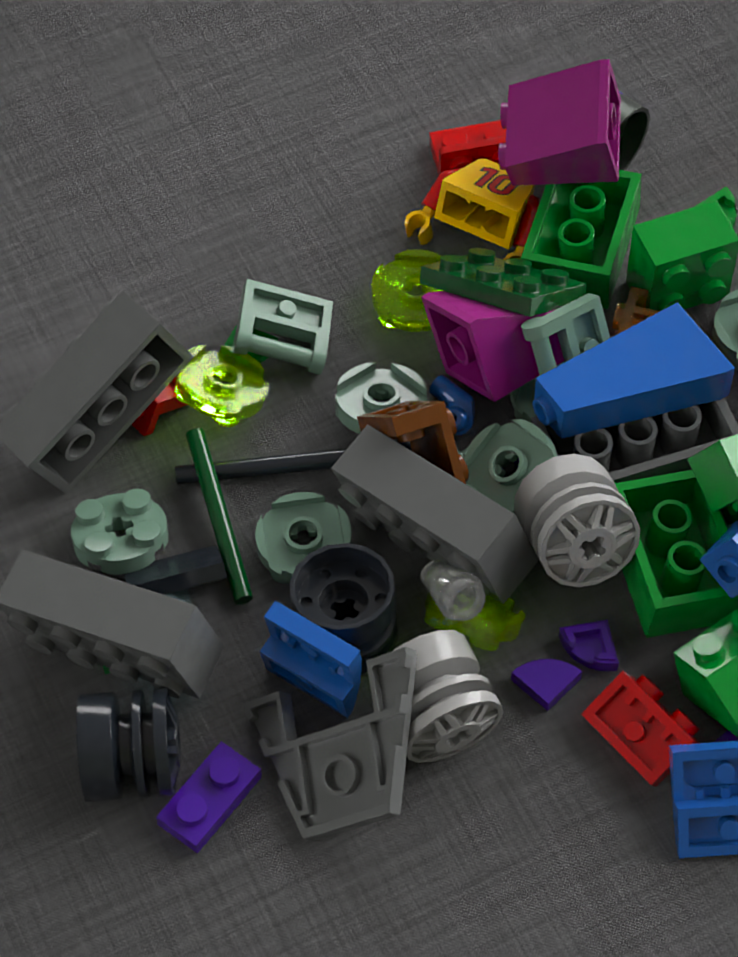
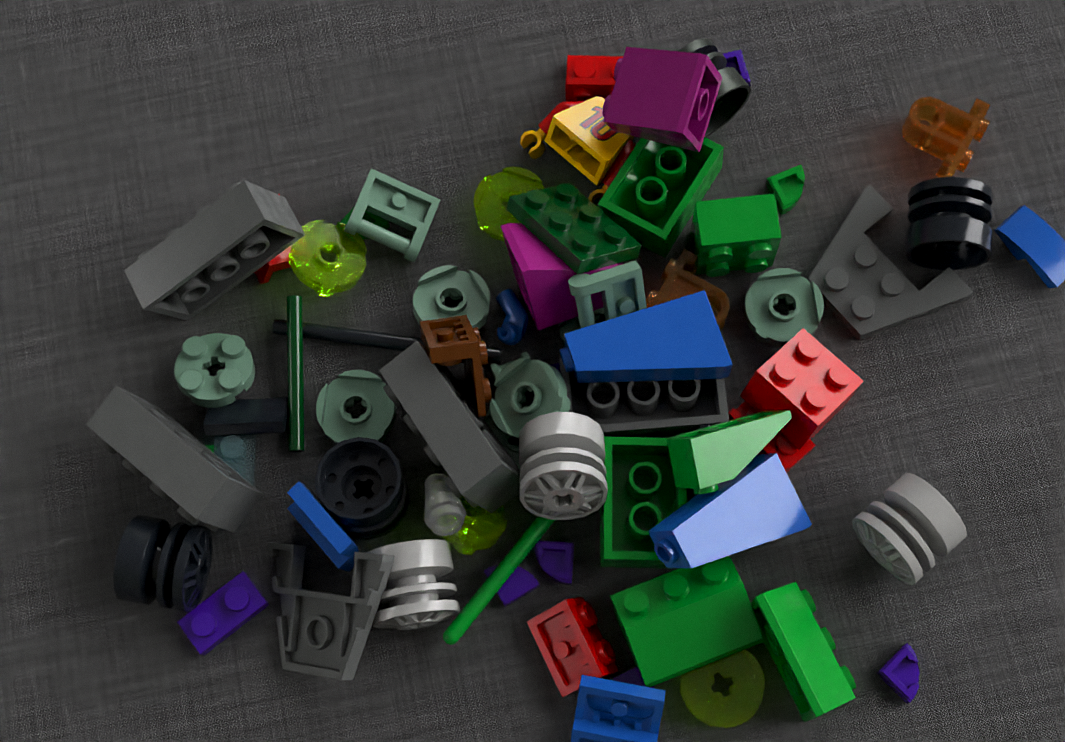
camera: 20 degrees right, 15 degrees up
(535, 667) = (496, 580): none -> green piece

